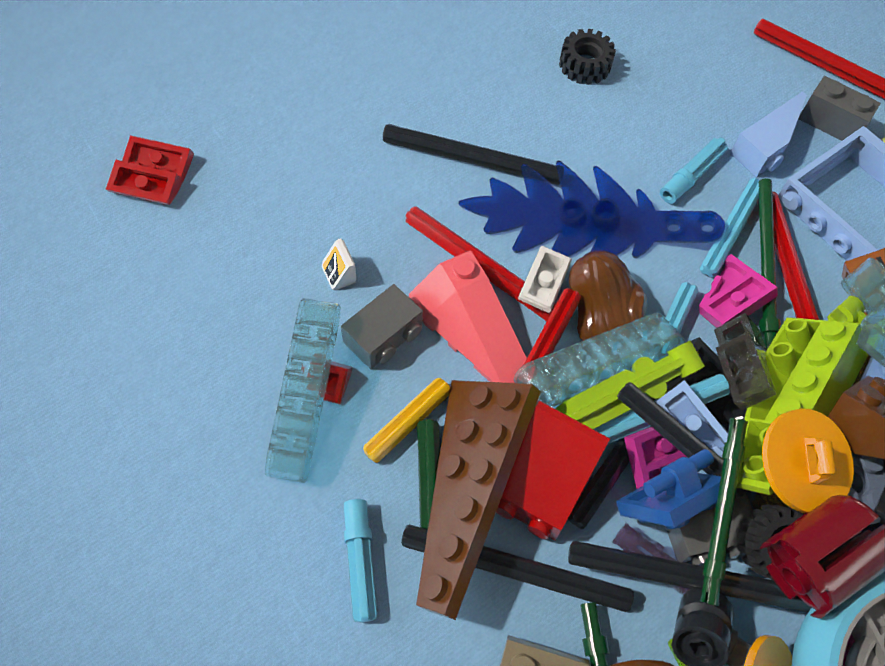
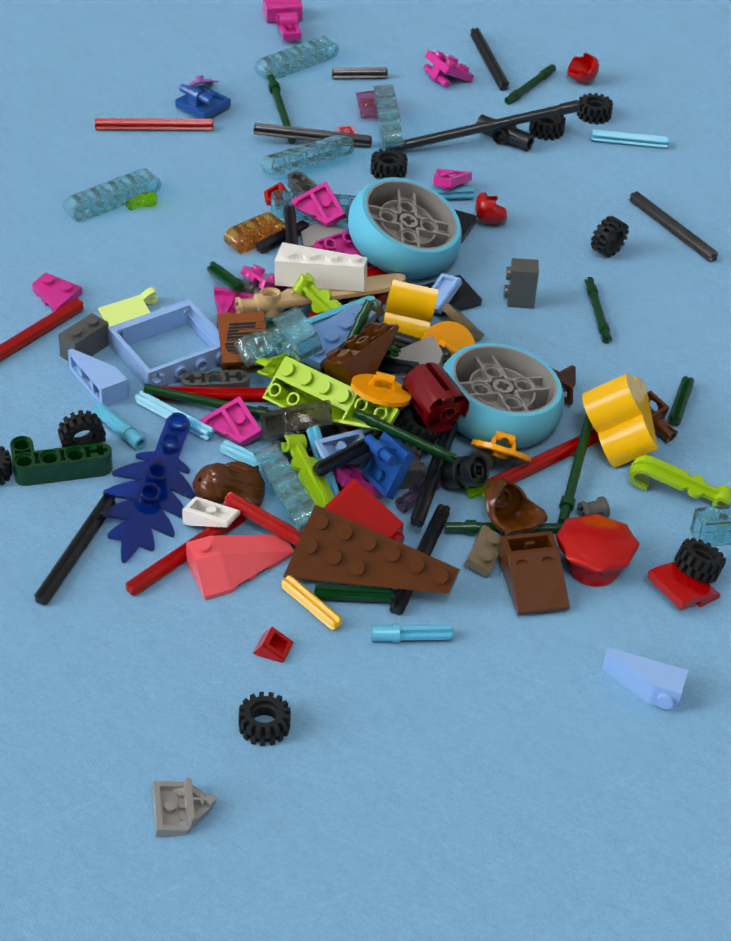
camera: 85 degrees left, 20 degrees down
(74, 298) = (178, 807): none -> light grey slope
(150, 170) = (48, 760): red slope -> none
(185, 361) = (264, 706): none -> black tyre
(303, 391) = (288, 645): clear light blue beam -> none
(339, 266) = (175, 631): white slope -> none
(382, 327) = (236, 607): dark grey brick -> none
(596, 99) = (58, 464): none -> dark green beam
(654, 125) = (81, 423): none -> black tyre
(819, 252) = (236, 378): none -> dark grey beam

